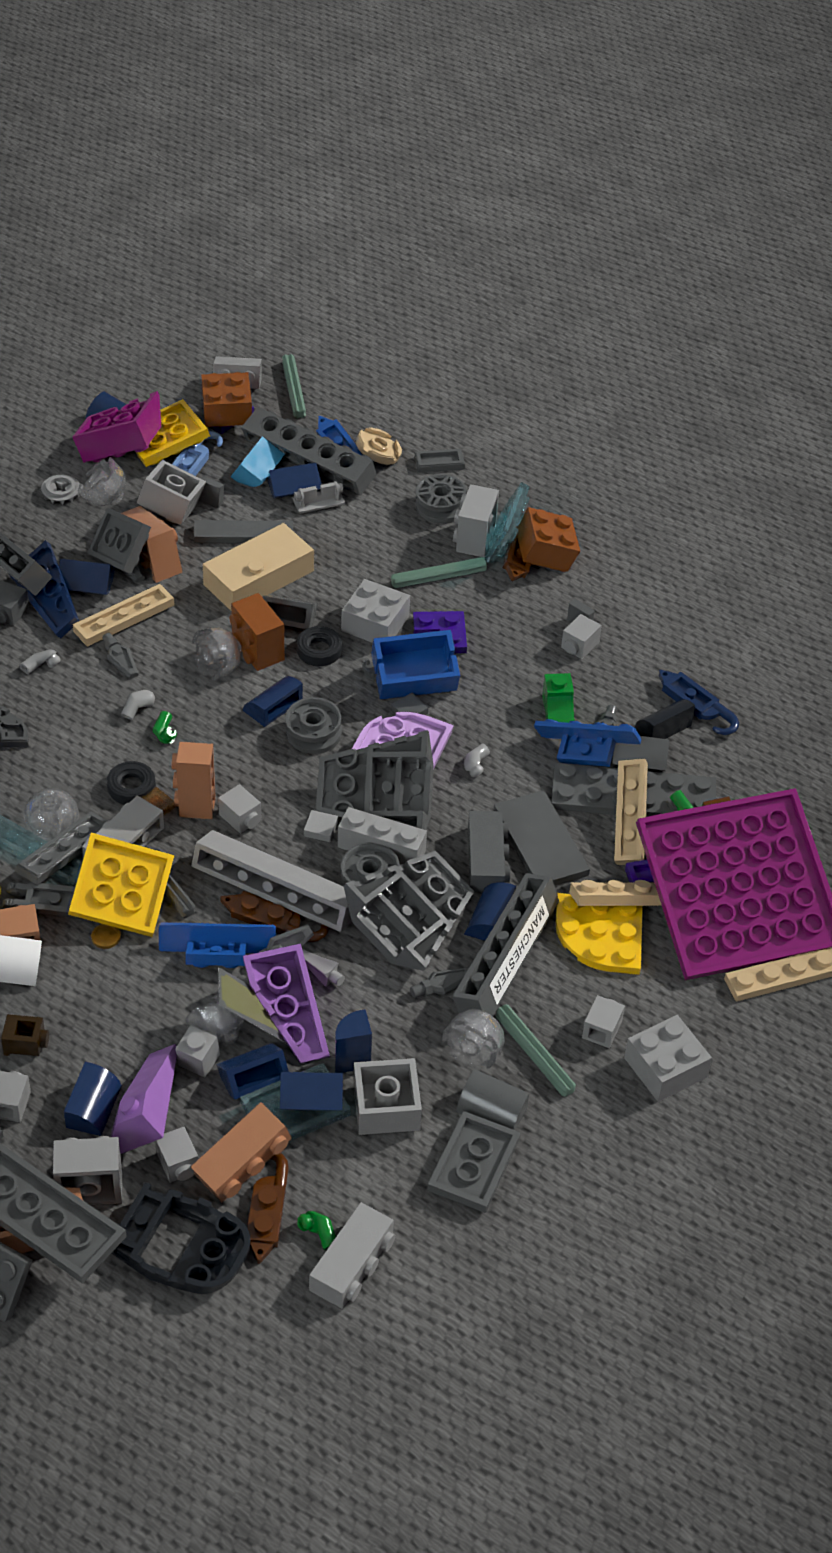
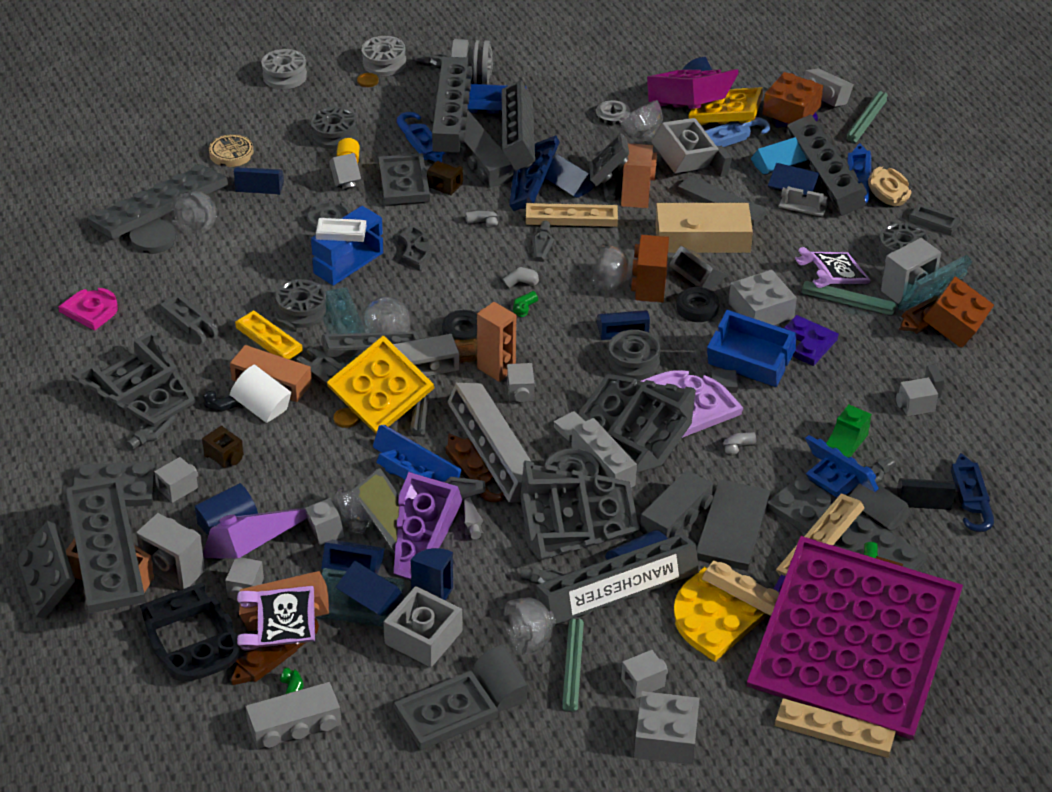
camera: 40 degrees right, 5 degrees down
(265, 1168) = (283, 617): none -> flag
(404, 547) = (834, 267): none -> flag

